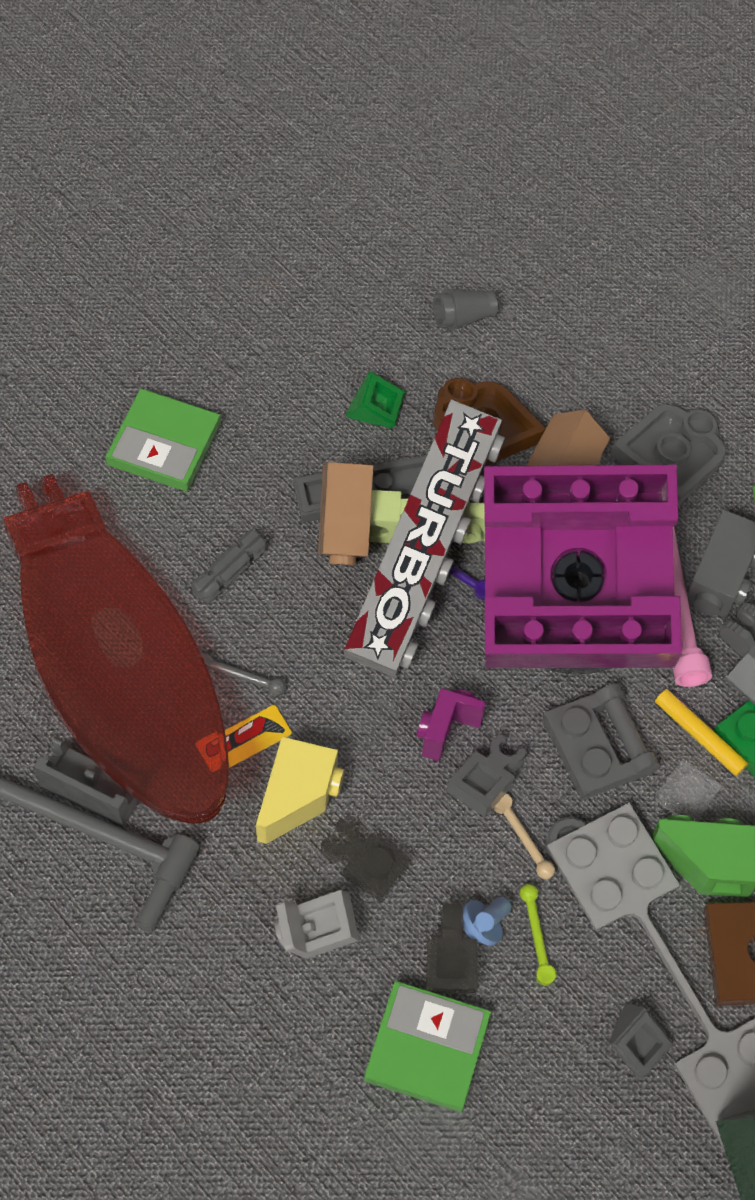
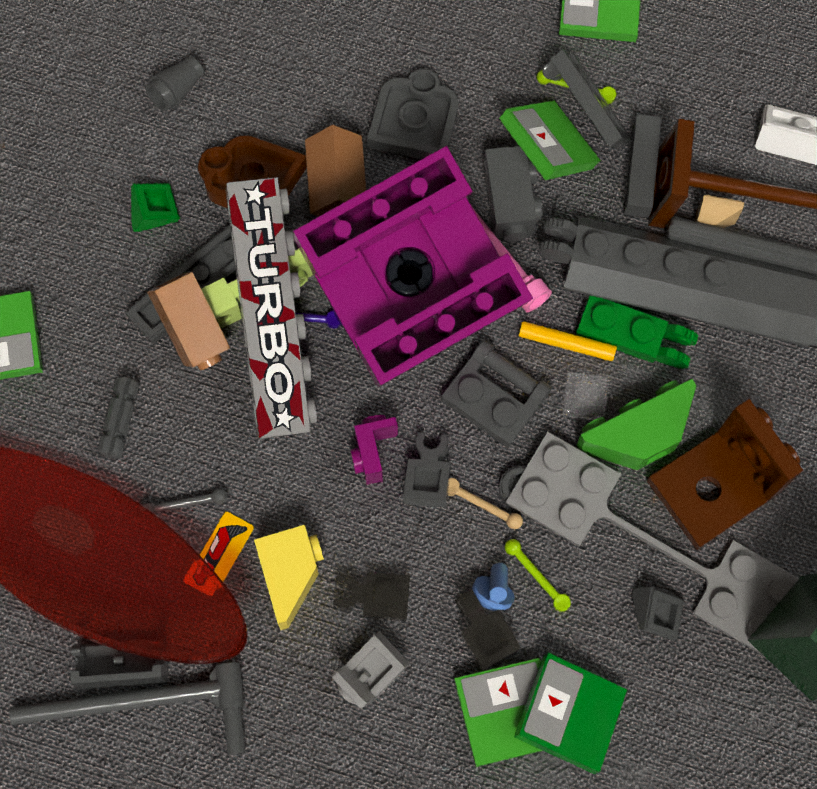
camera: 30 degrees left, 10 degrees up
(489, 1082) = (571, 713): none -> green tile

